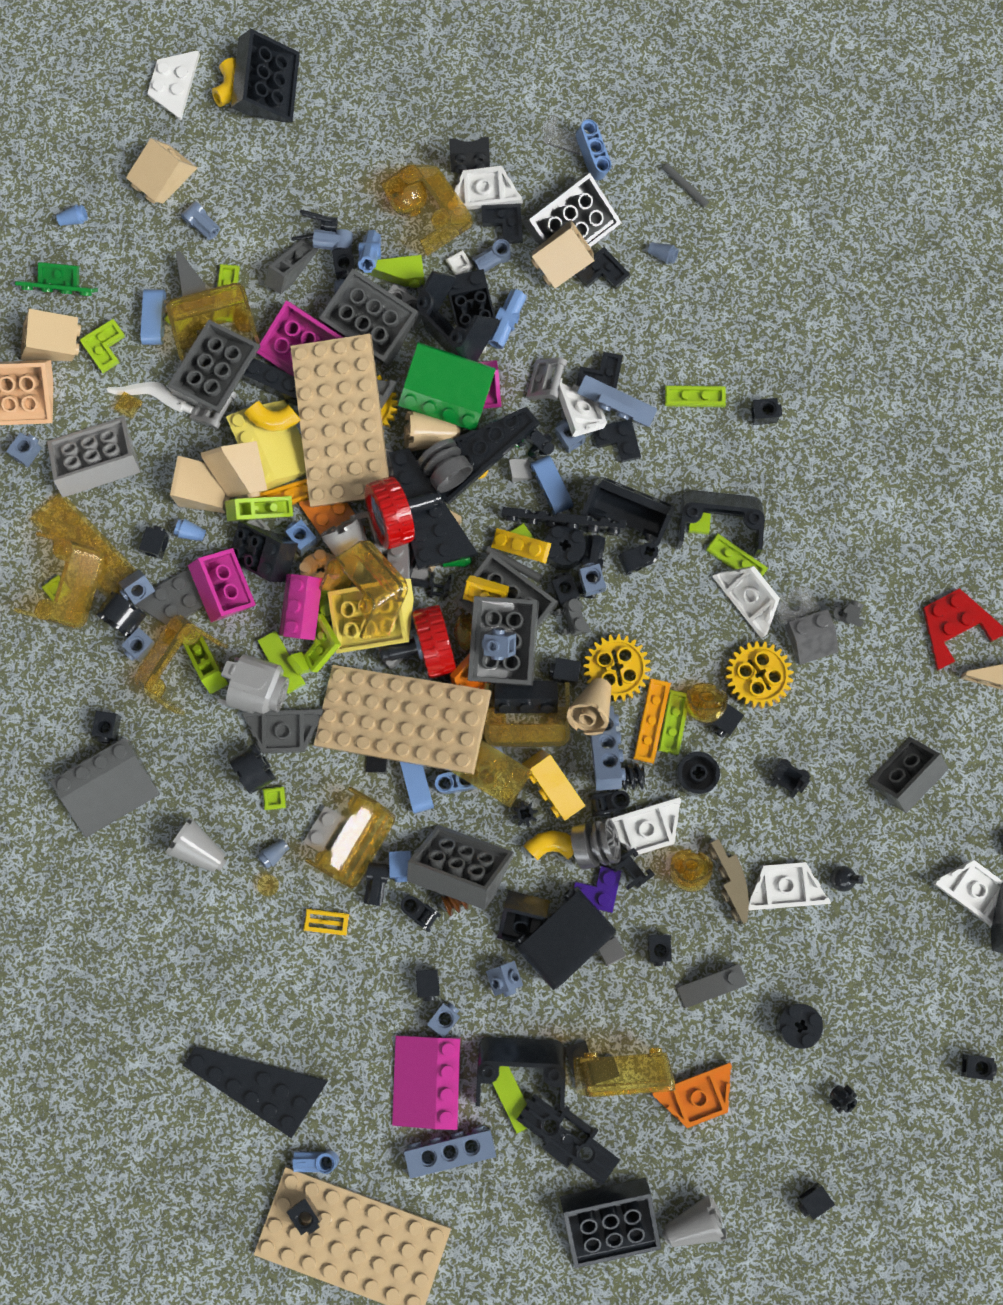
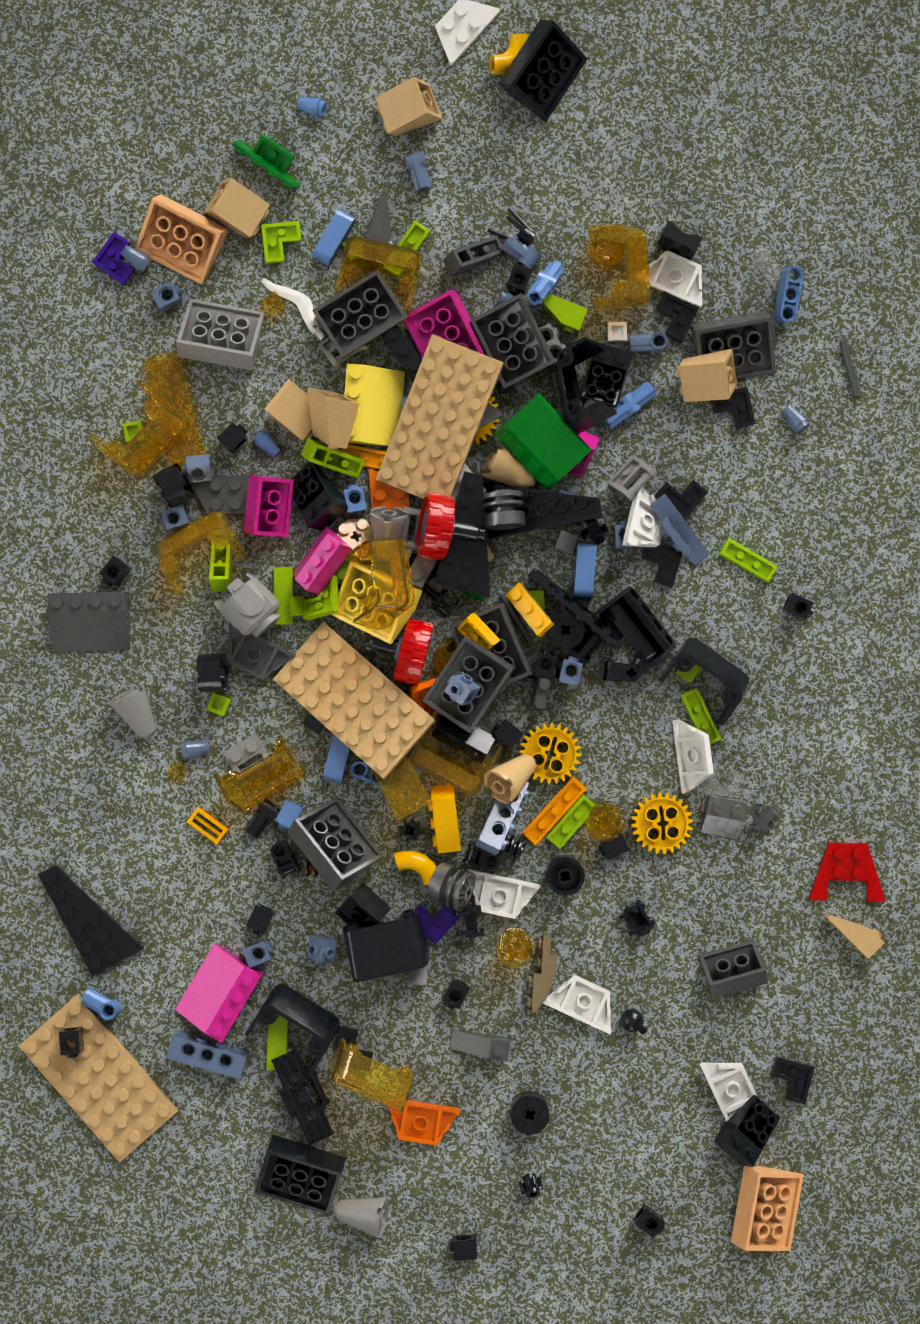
camera: 25 degrees right, 10 degrees up
(270, 419) = (382, 388): yellow cylinder -> none

